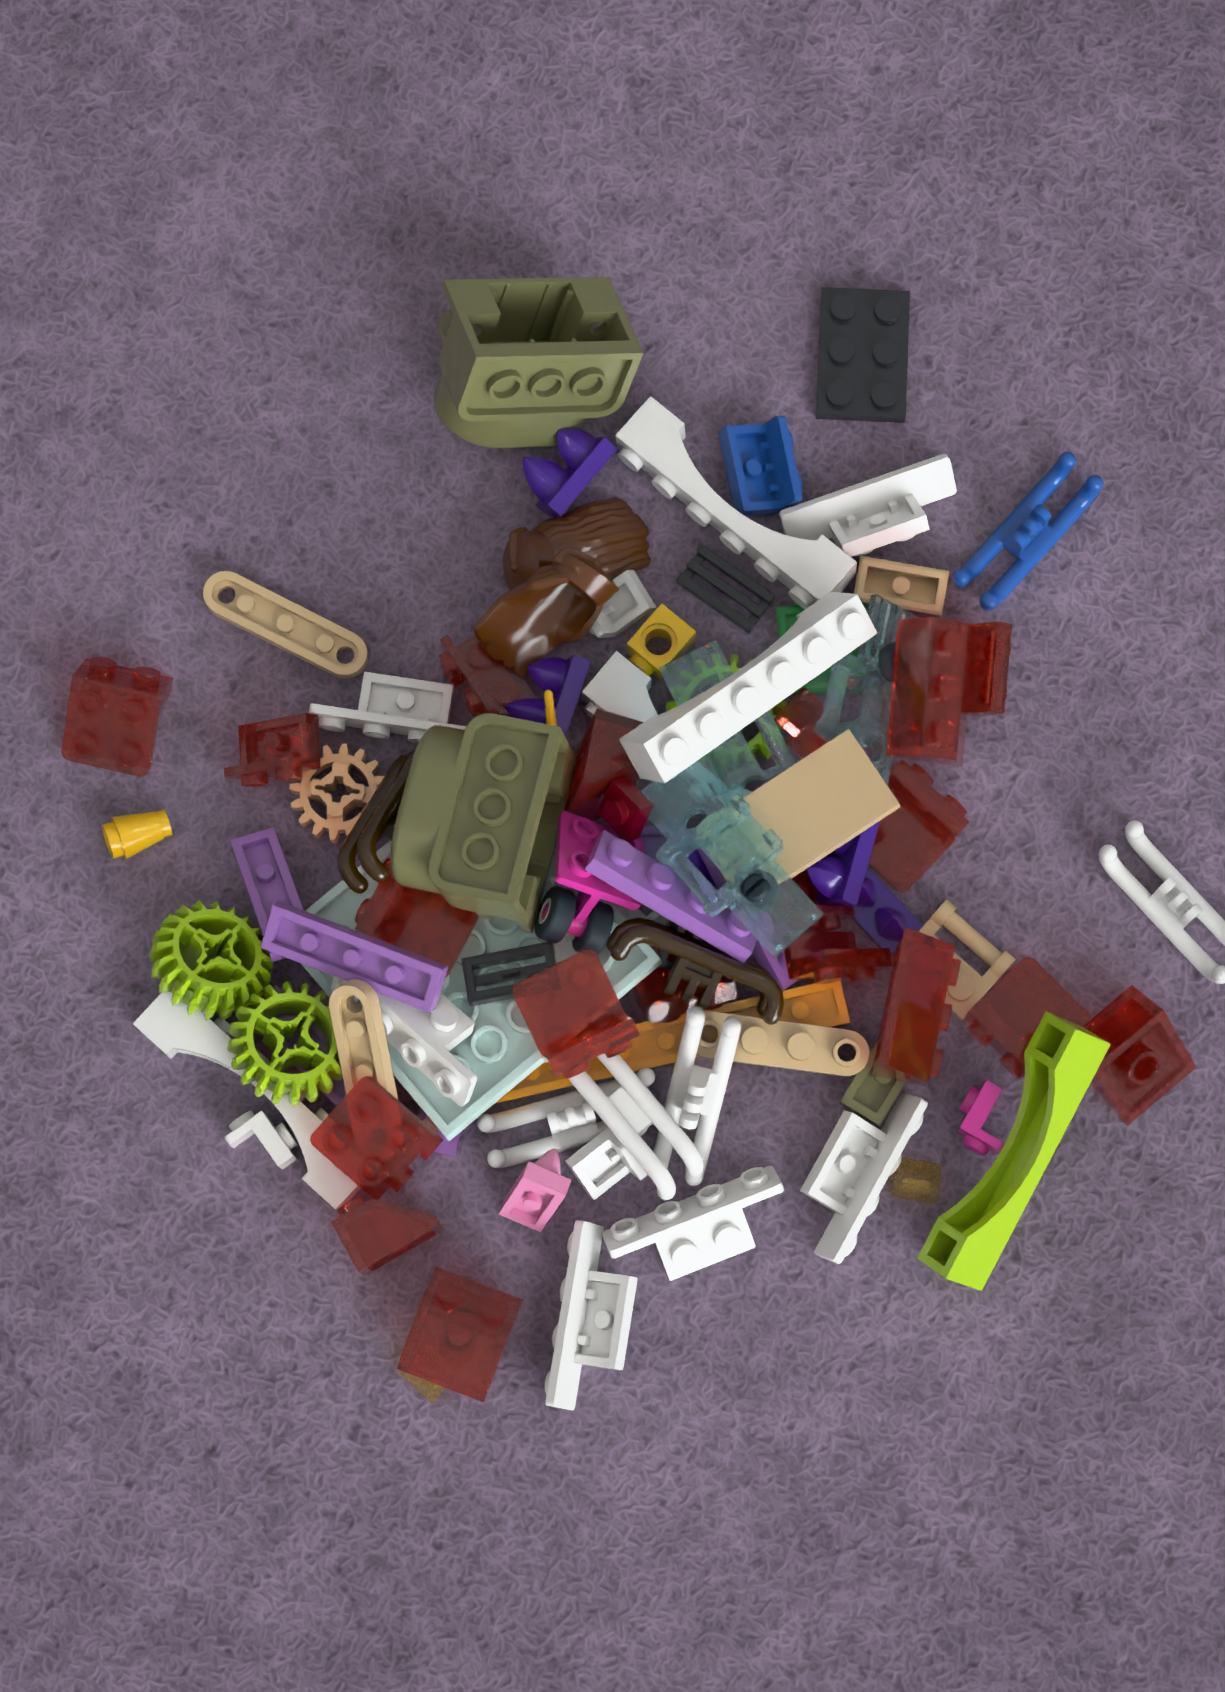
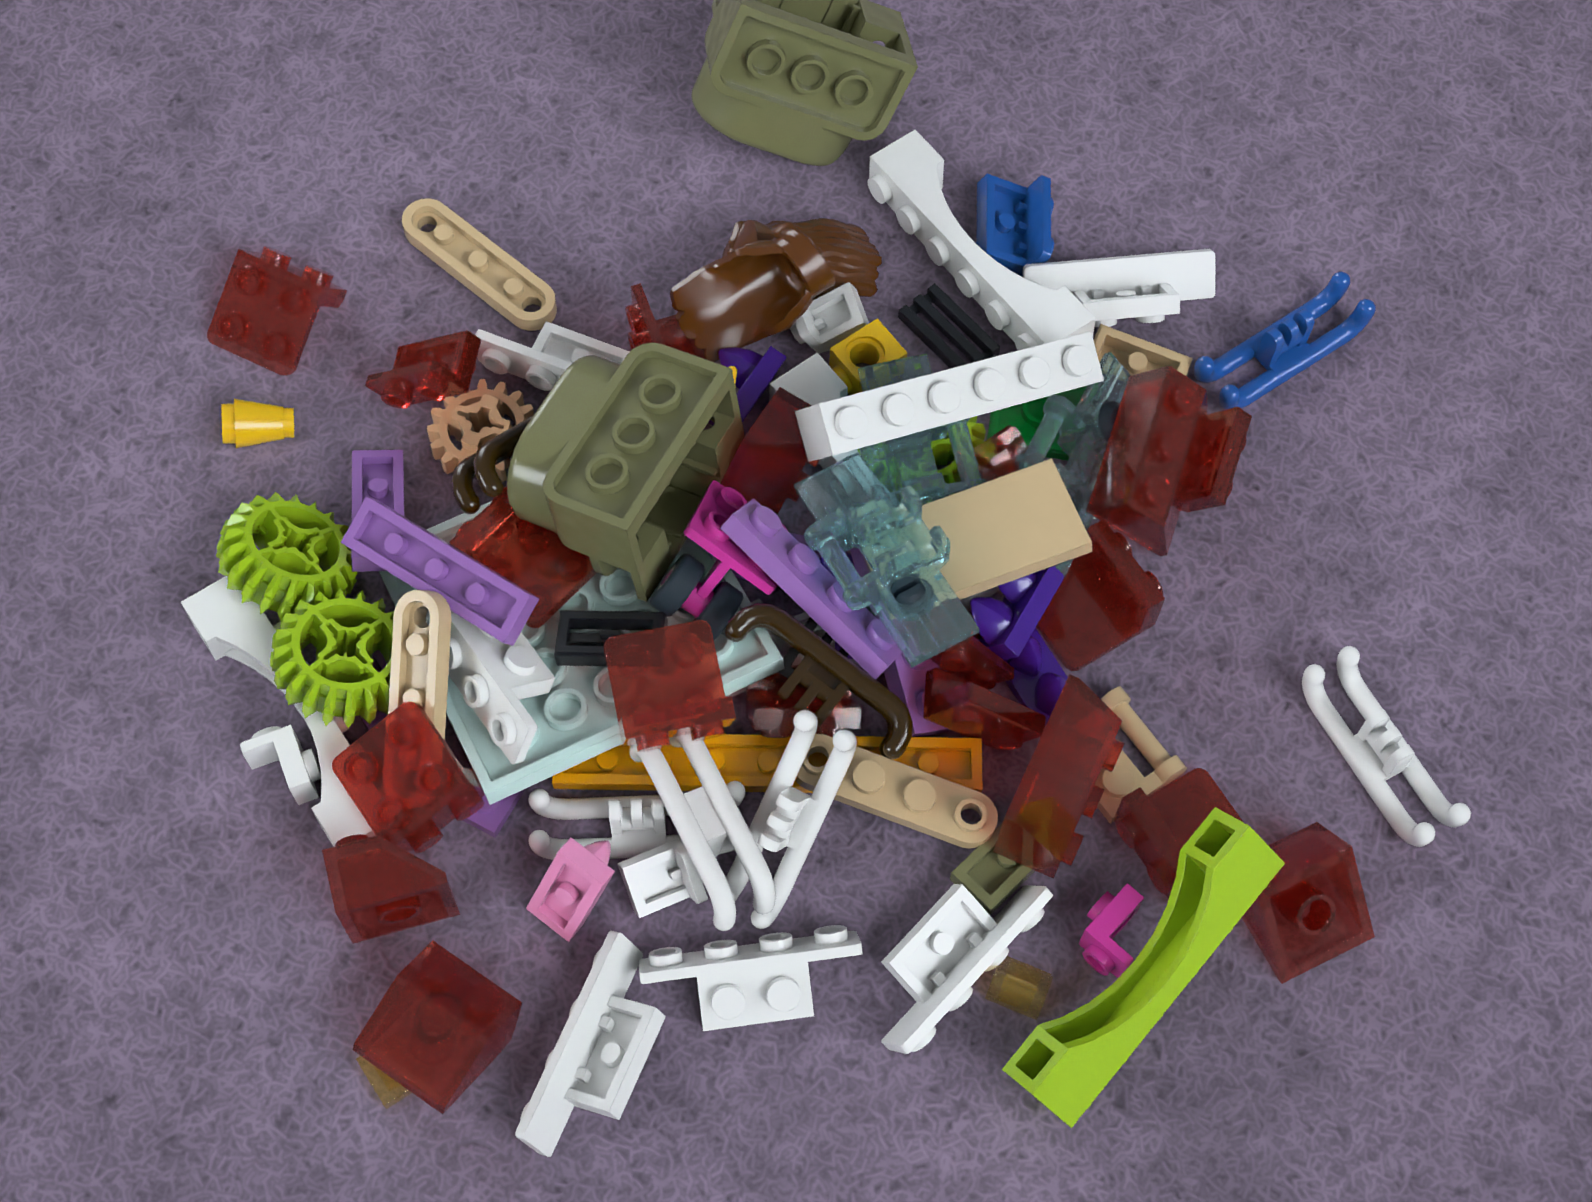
camera: 10 degrees right, 15 degrees down
(560, 486) = (795, 193): dark purple tile -> none
(625, 808) = (784, 489): dark red plate -> none
(863, 355) = (1143, 152): black plate -> none

